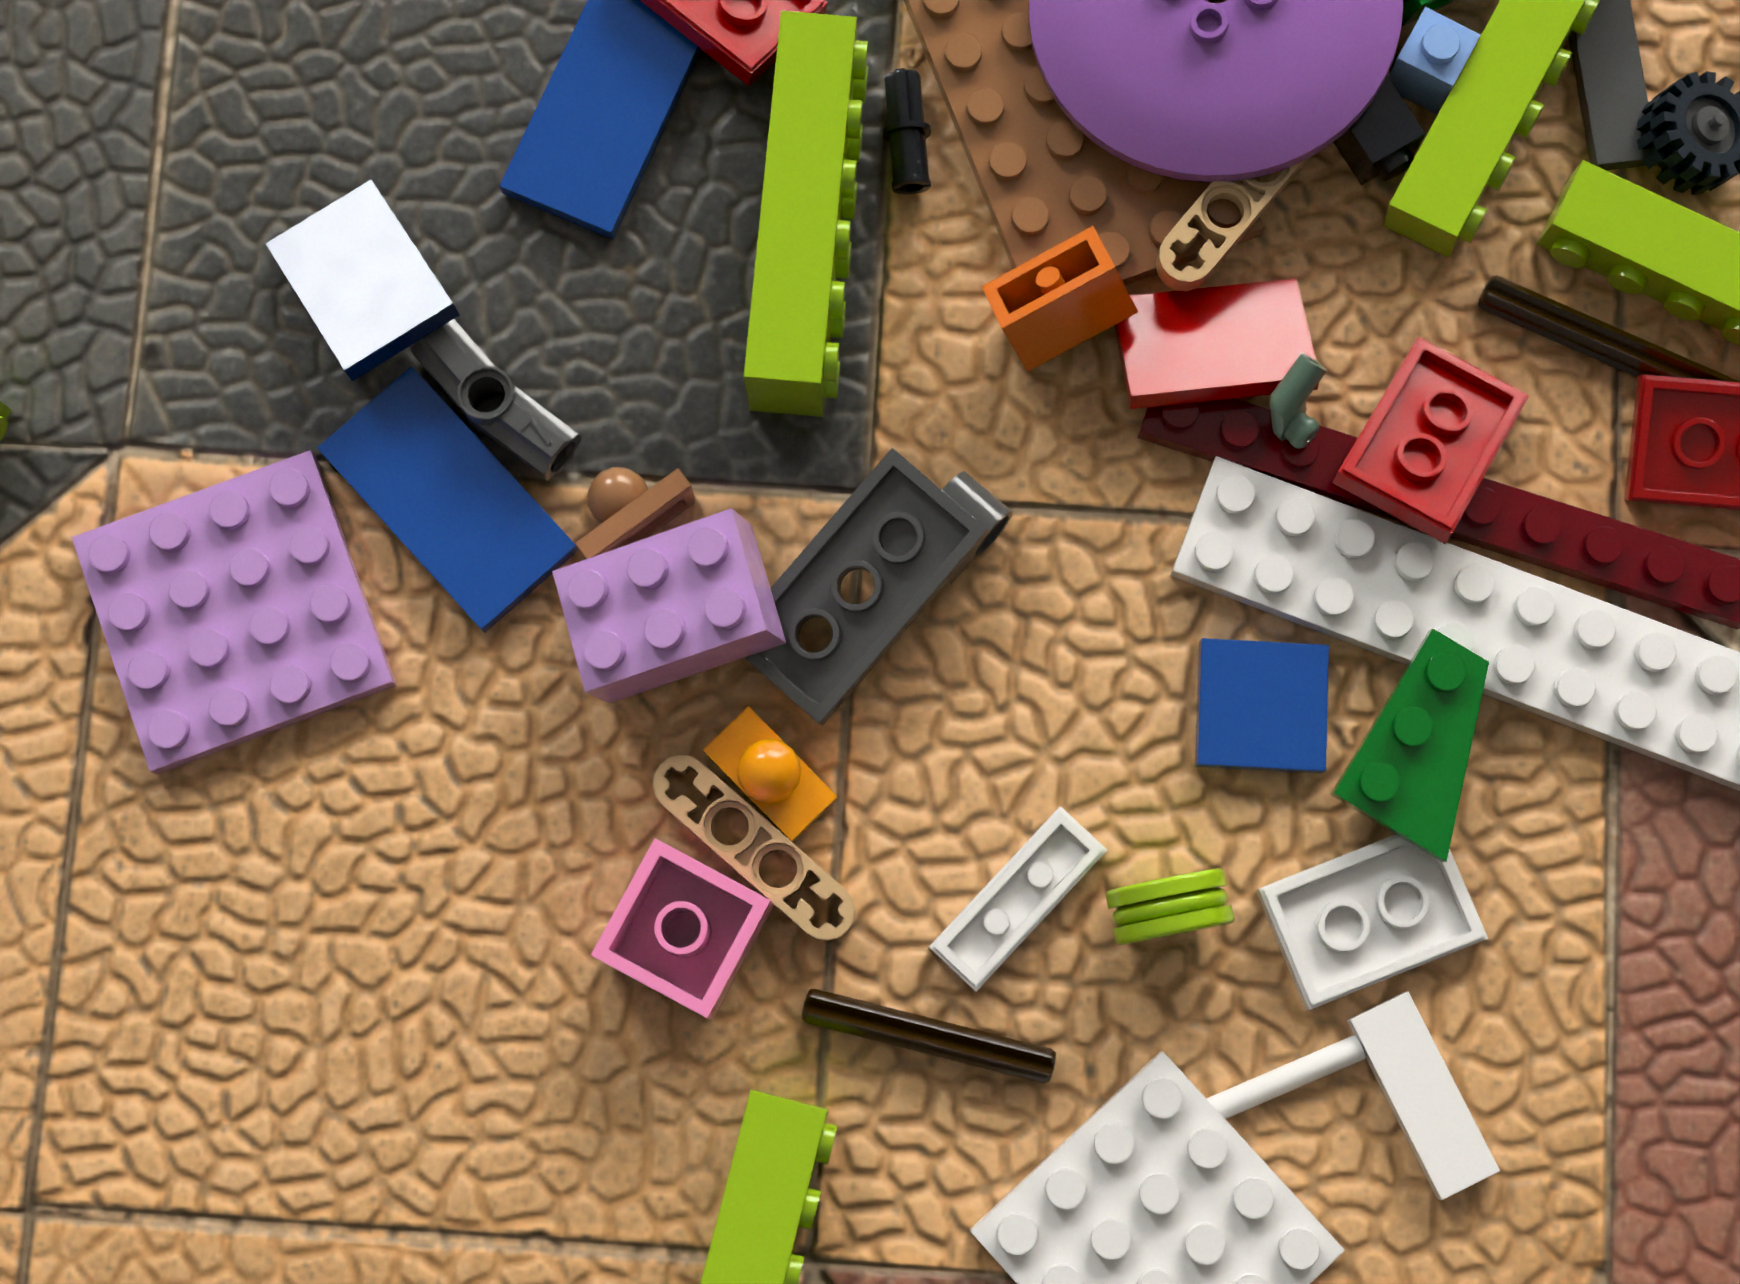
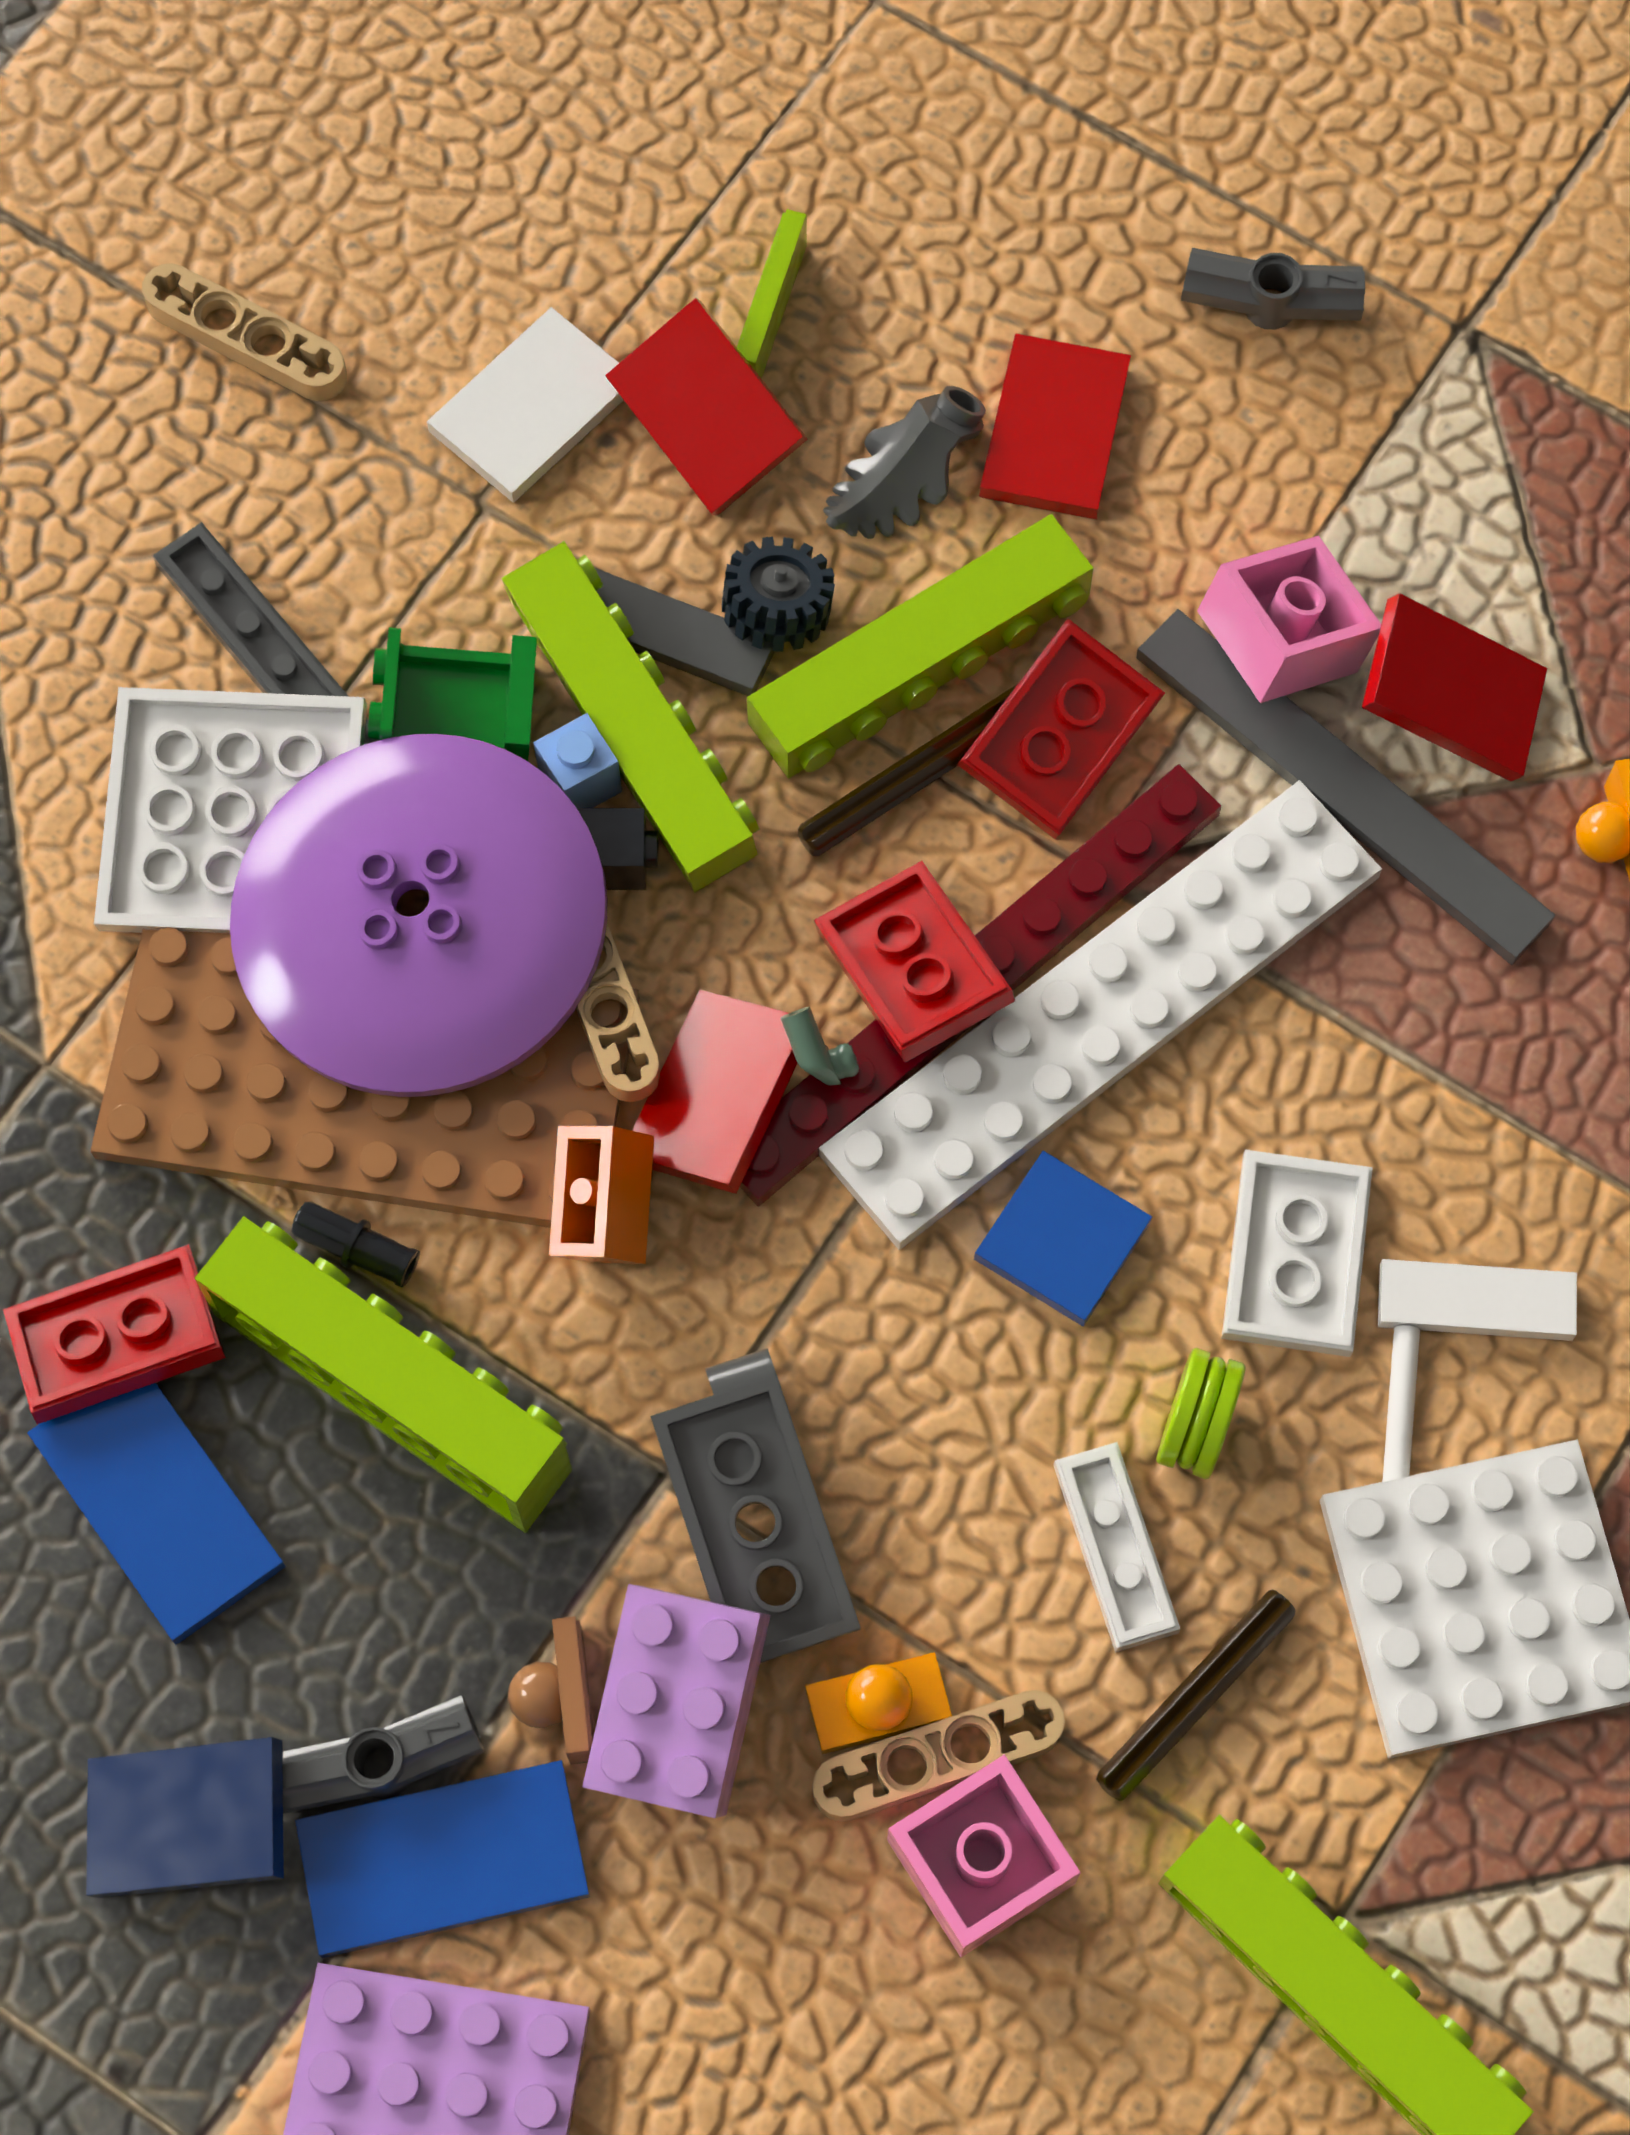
camera: 60 degrees left, 10 degrees down
(1419, 747) = (1177, 1126): green wing -> none

